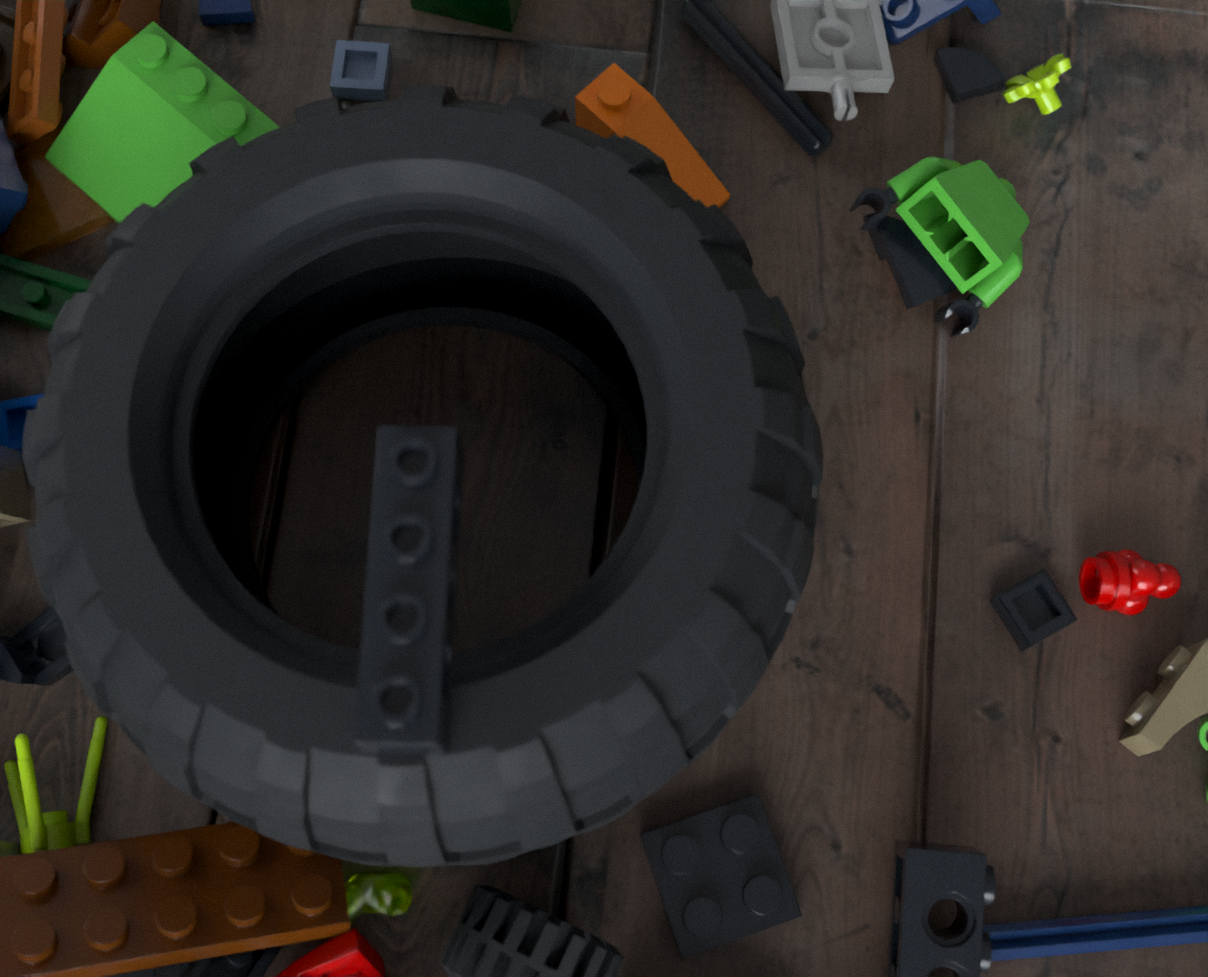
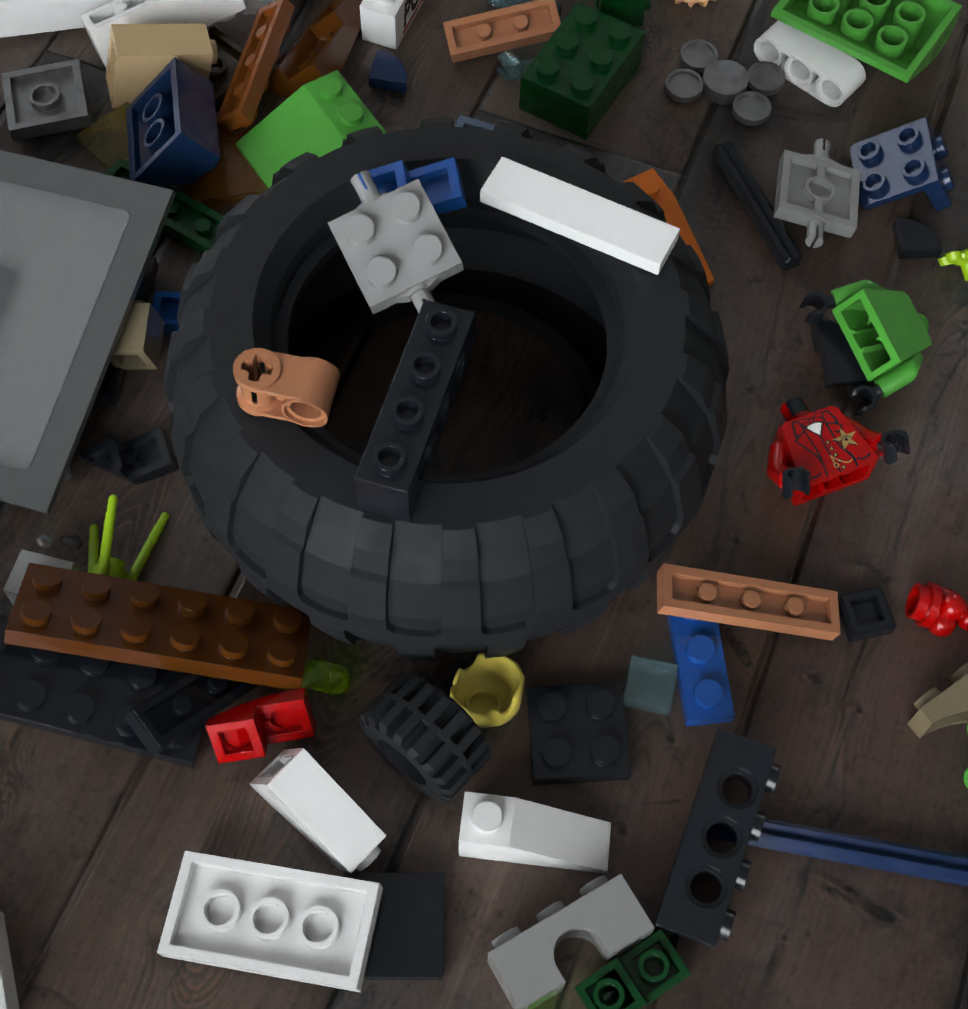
camera: 15 degrees right, 10 degrees down
(227, 603) = (291, 388): none -> nougat piece
(305, 242) = (440, 181): none -> blue slope
(310, 336) = (395, 244): none -> light grey plate
(557, 214) = (579, 215): none -> white tile
(594, 867) = (489, 690): none -> light yellow hair
(793, 783) = (650, 685): none -> clear light blue tile
(843, 725) = (701, 671): none -> blue plate
(890, 645) = (747, 602): none -> nougat plate
(932, 404) = (826, 451): none -> red torso

